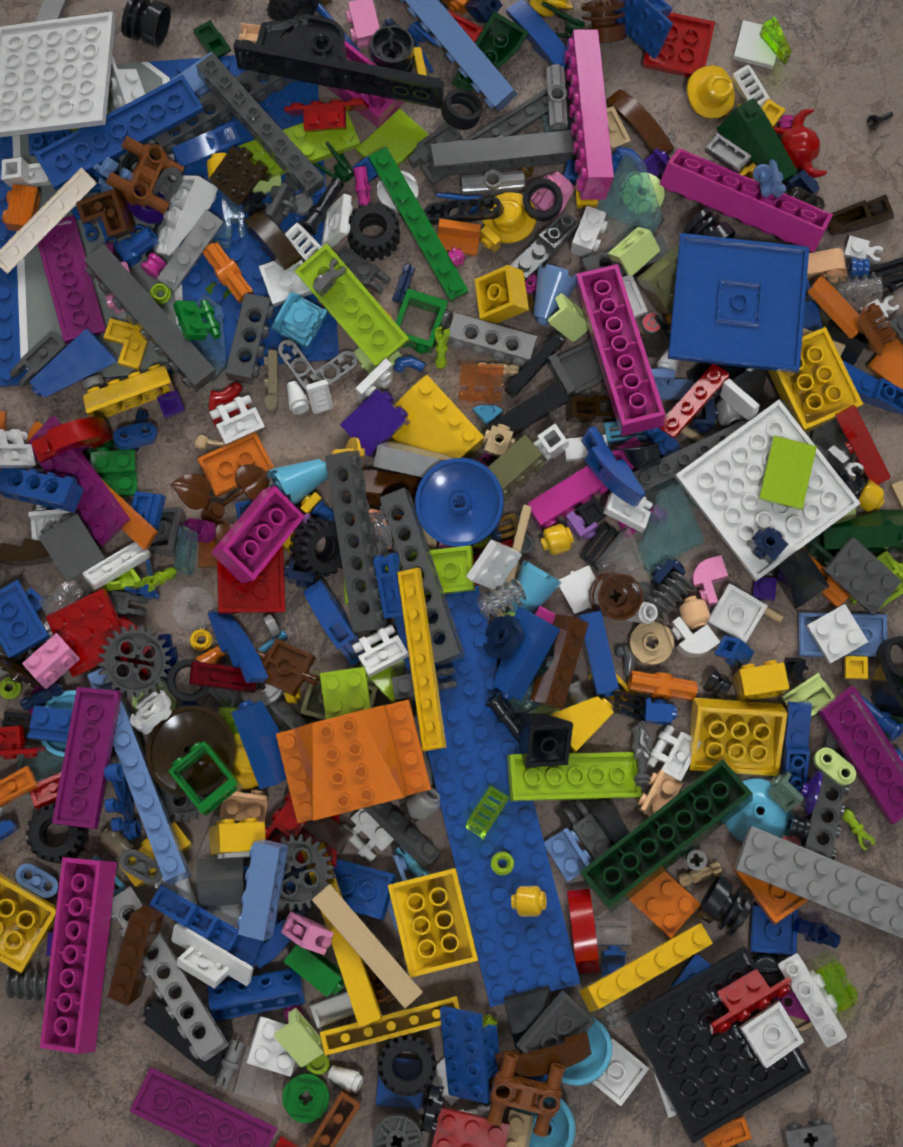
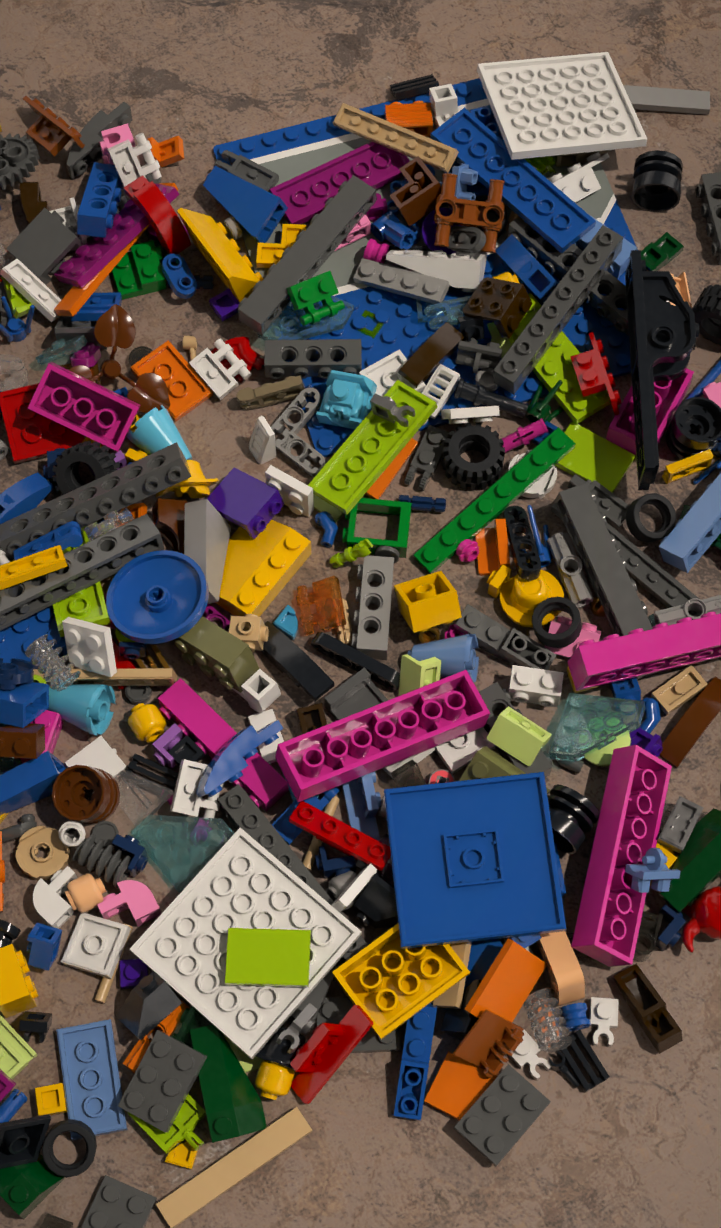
camera: 80 degrees right, 10 degrees down
(157, 288) = (347, 261): lime plate -> none
(159, 578) = (27, 332): lime piece -> none
(227, 271) = (386, 322): orange piece -> none
(296, 398) = (249, 422): white cone -> none
(643, 456) = (260, 787): black piece -> none
(768, 544) = (169, 955): dark blue brick -> none
(836, 634) = (88, 1067): white plate -> none

